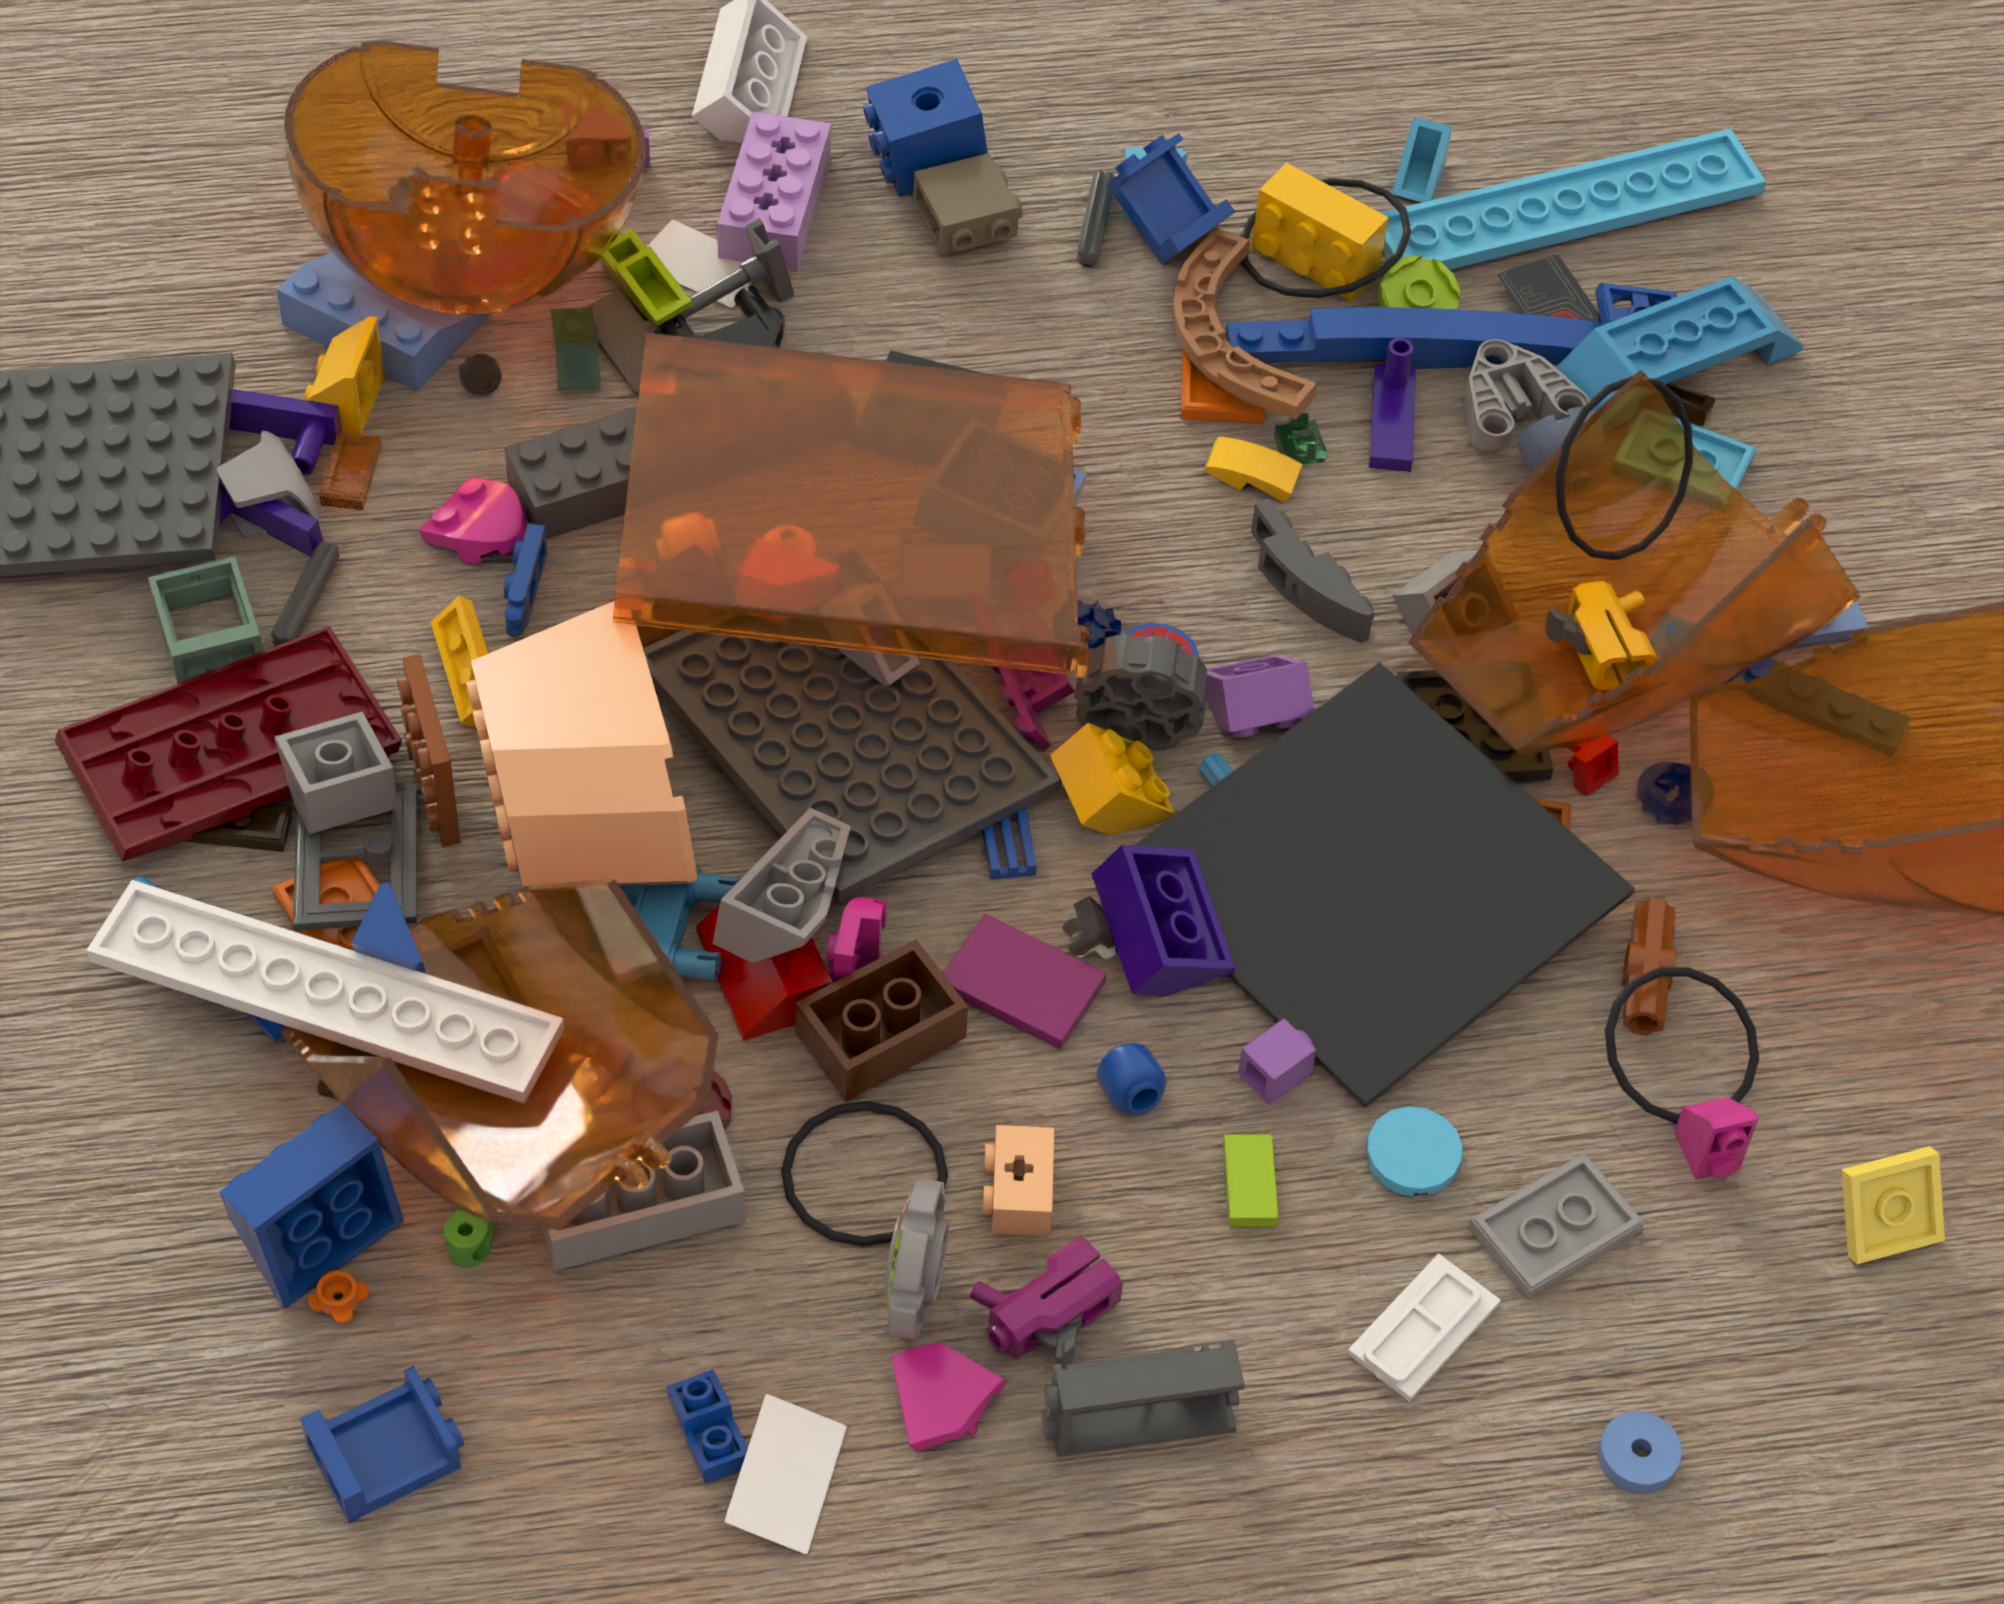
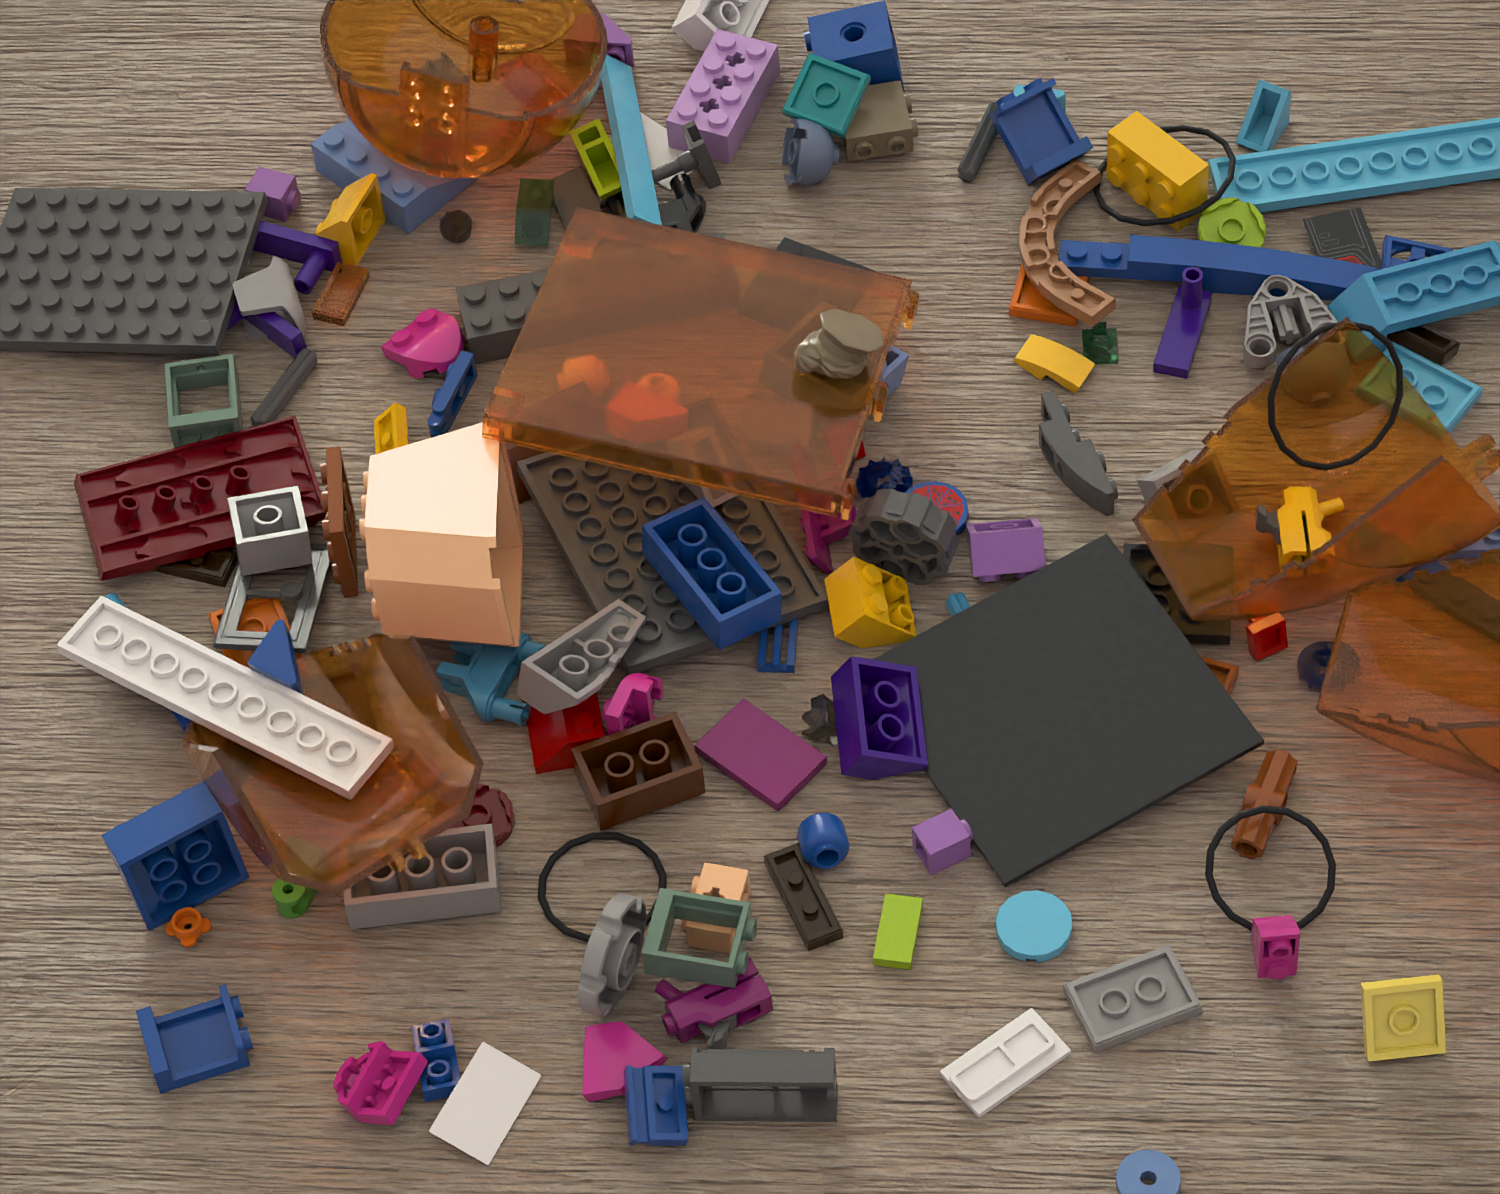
camera: 20 degrees right, 0 degrees up
(248, 350) = (280, 191): none -> medium lavender brick
(641, 1468) = (378, 1083): none -> dark pink slope
(683, 263) = (629, 142): none -> medium azure tile
(895, 247) = (808, 152): none -> sand blue cylinder
(910, 175) = (826, 94): none -> teal tile
(920, 762) = (711, 573): none -> blue brick
(1010, 1445) = (656, 1105): none -> blue plate
(1021, 1186) = (703, 909): none -> sand green window
(1023, 467) = (839, 346): none -> dark tan piece
(1121, 1152) = (803, 897): none -> dark brown tile

